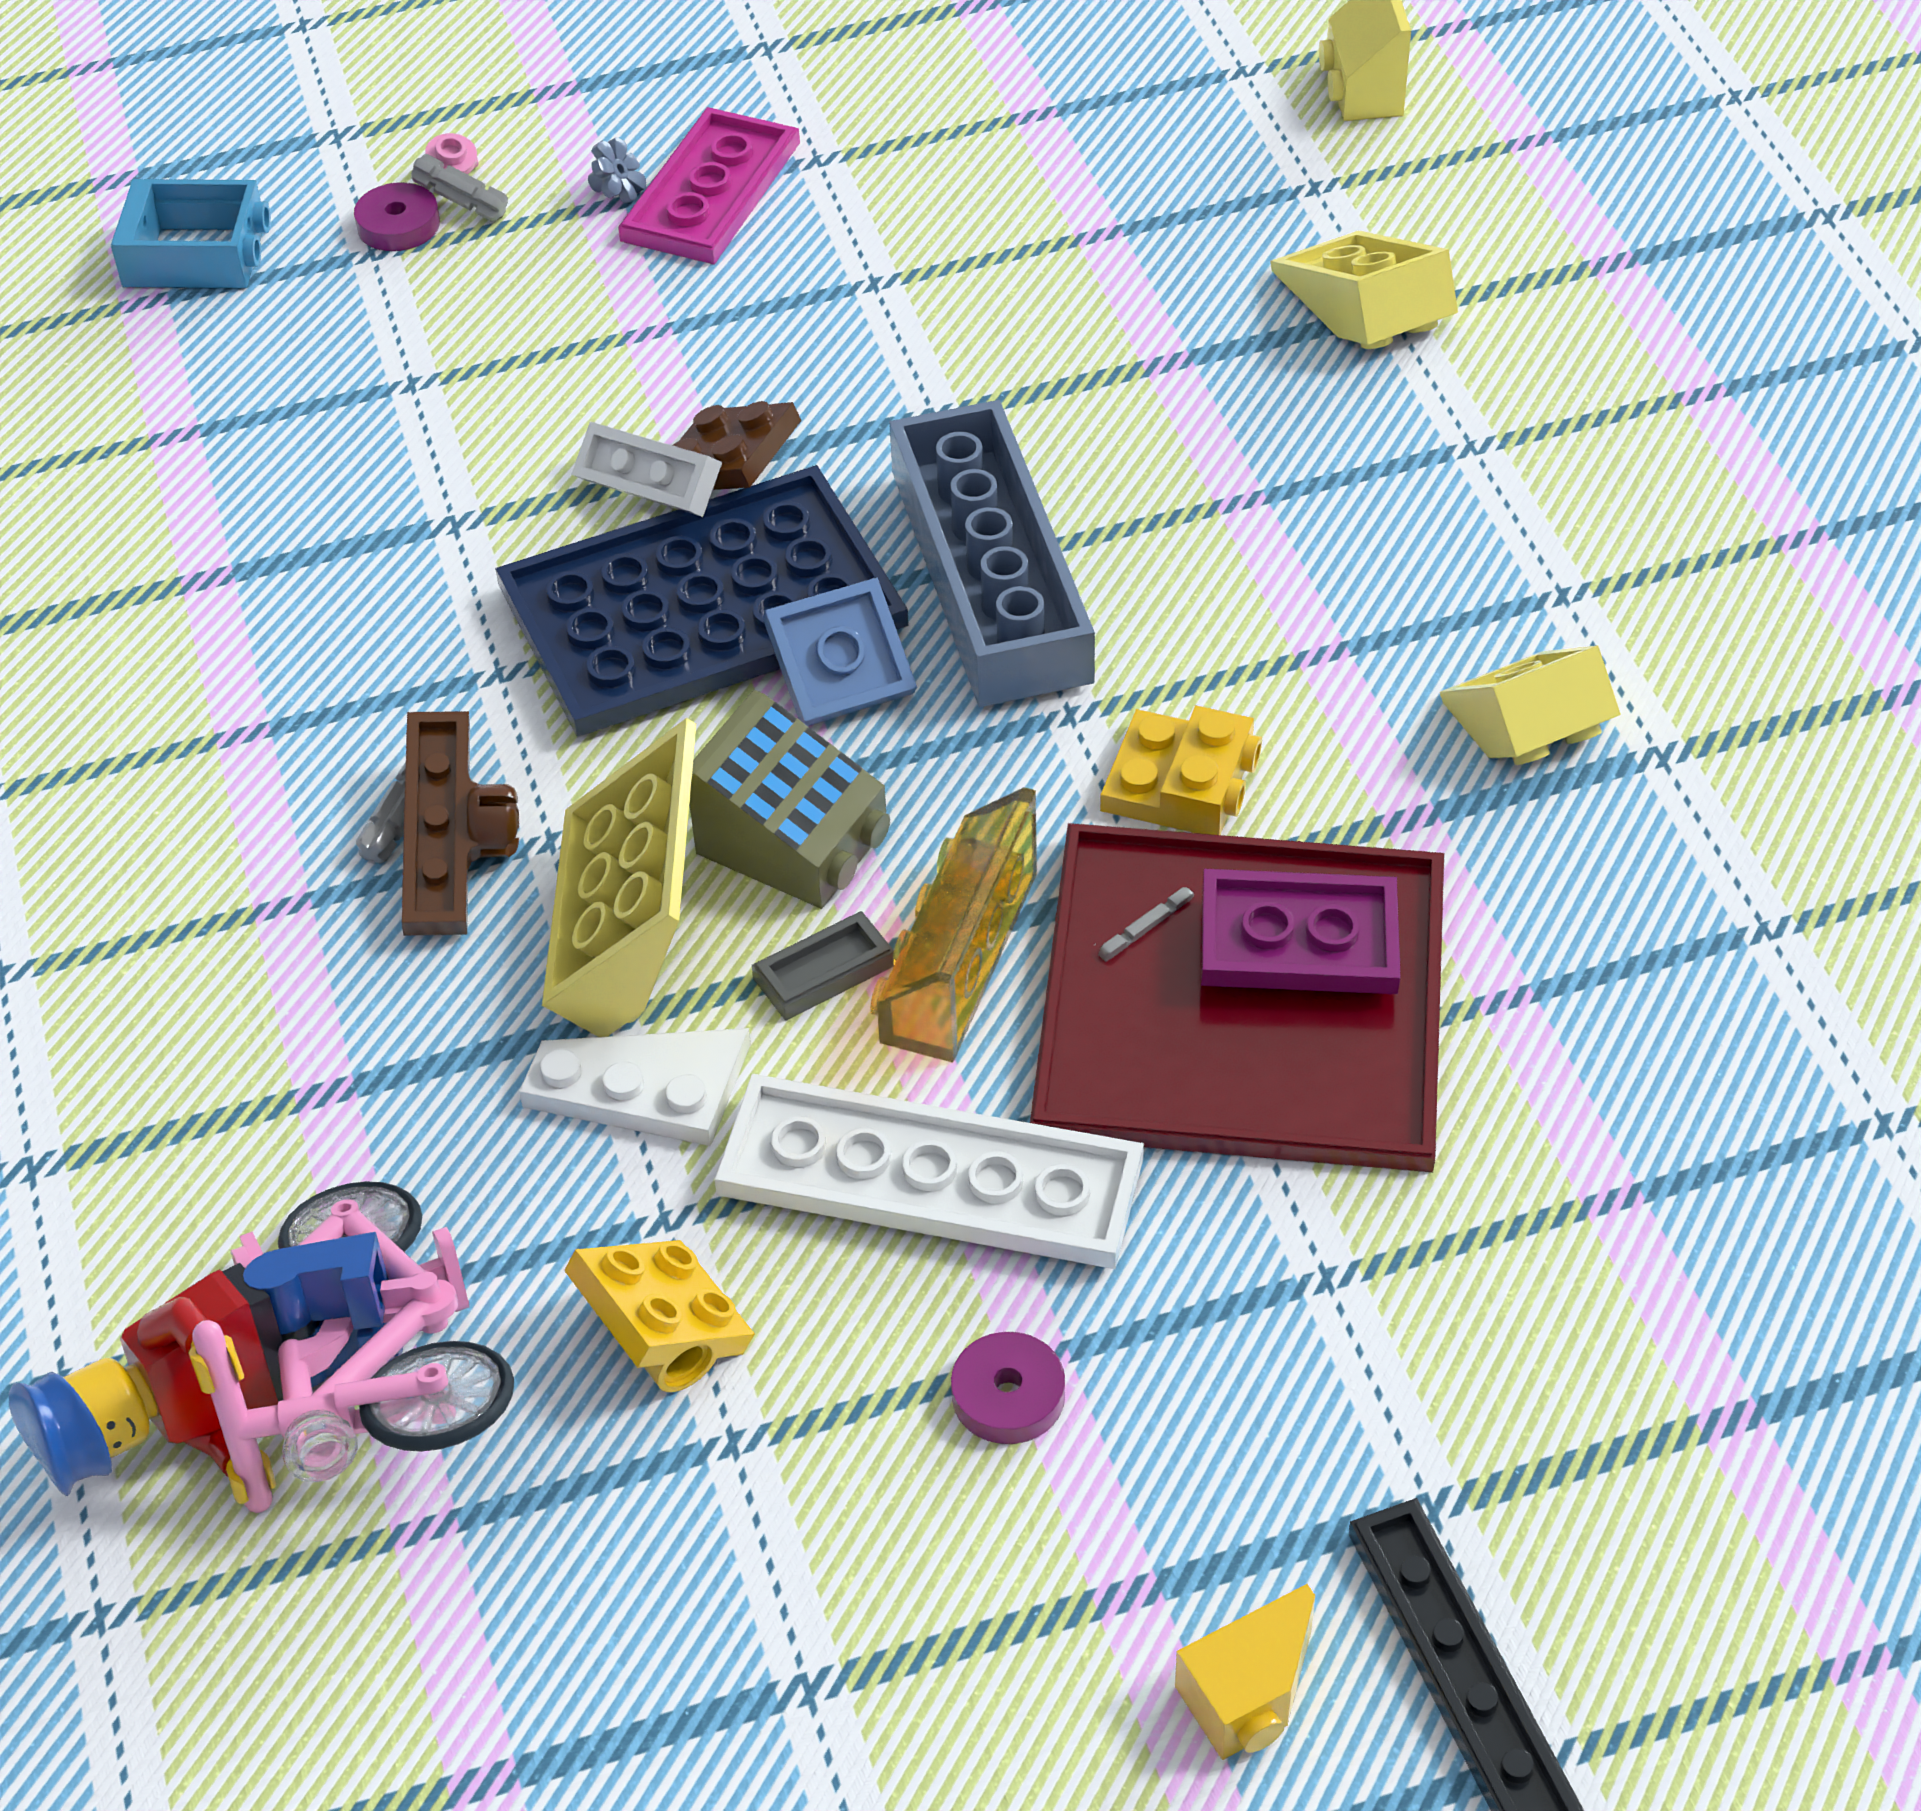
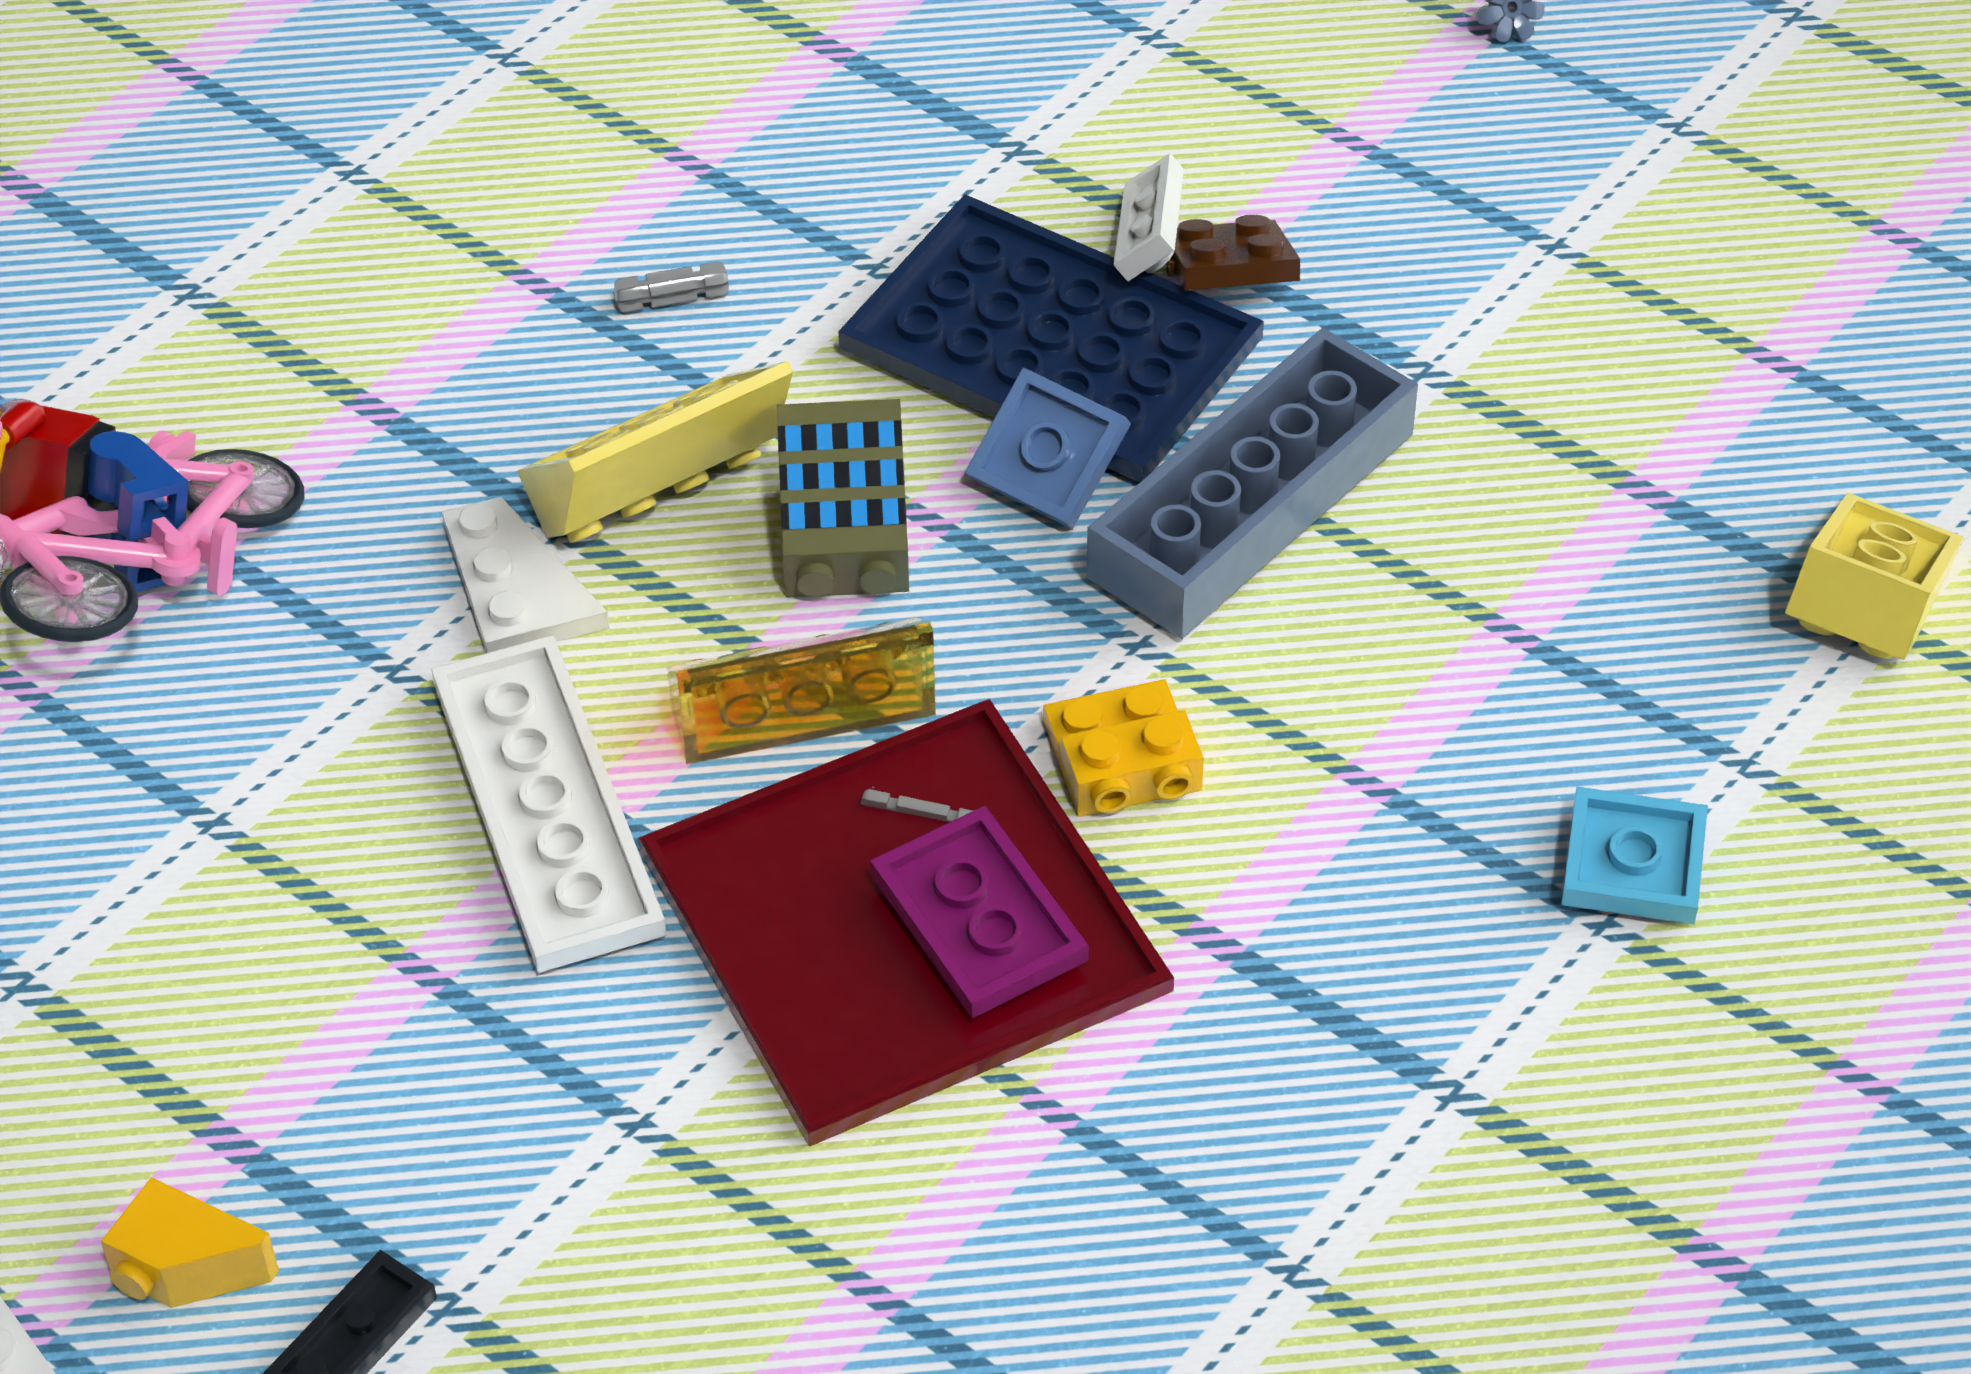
camera: 55 degrees right, 0 degrees up
(447, 823) = (667, 317): reddish brown plate -> none
(660, 1308) = (281, 700): yellow plate -> none
(709, 185) = (1568, 76): dark pink tile -> none
(823, 965) = (714, 623): dark grey tile -> none
(1008, 1415) = (376, 986): magenta piece -> none
(1525, 539) = (1635, 855): none -> medium azure plate
(1535, 703) = (1410, 956): light yellow slope -> none

